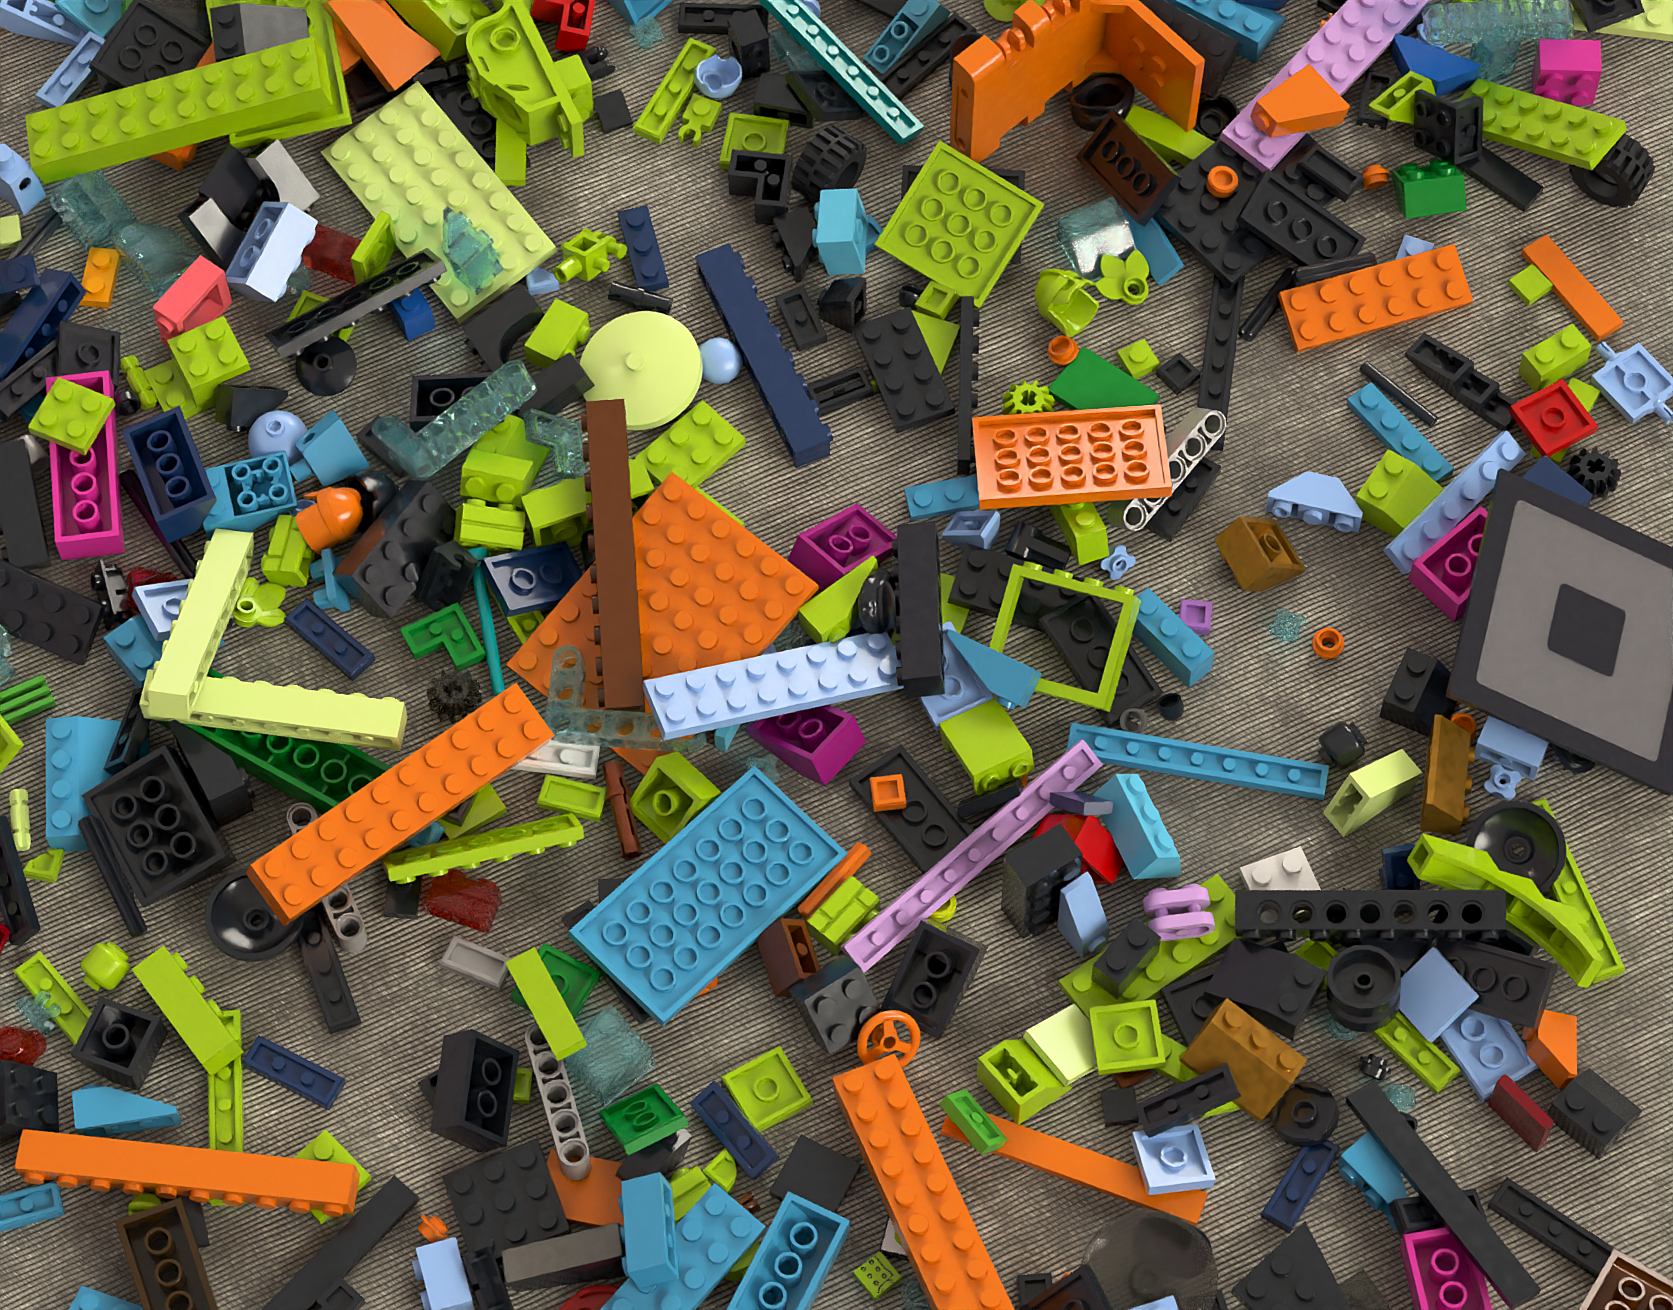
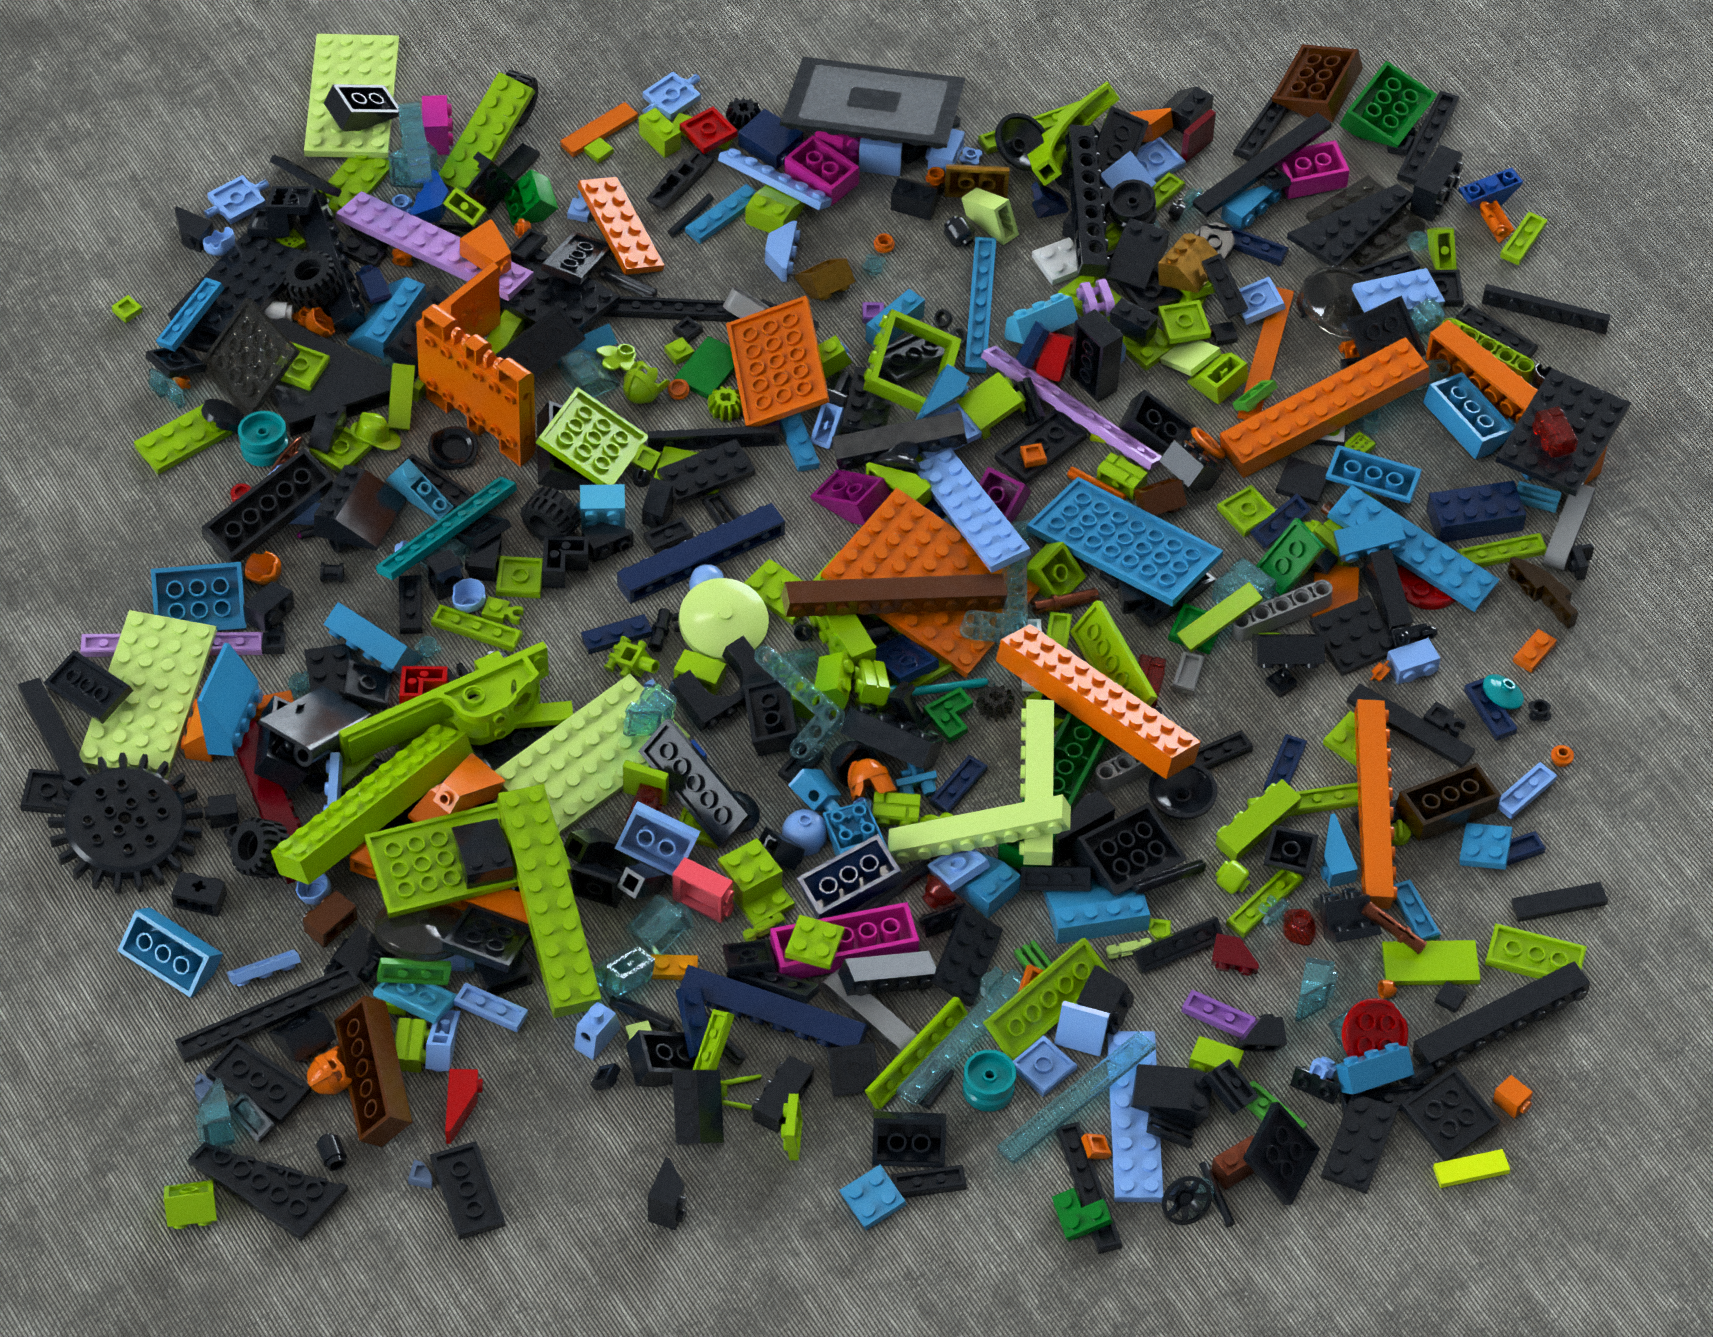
camera: 100 degrees left, 10 degrees down
(1222, 181) = (545, 296): orange tile -> none
(1326, 270) = (604, 242): black axle -> none

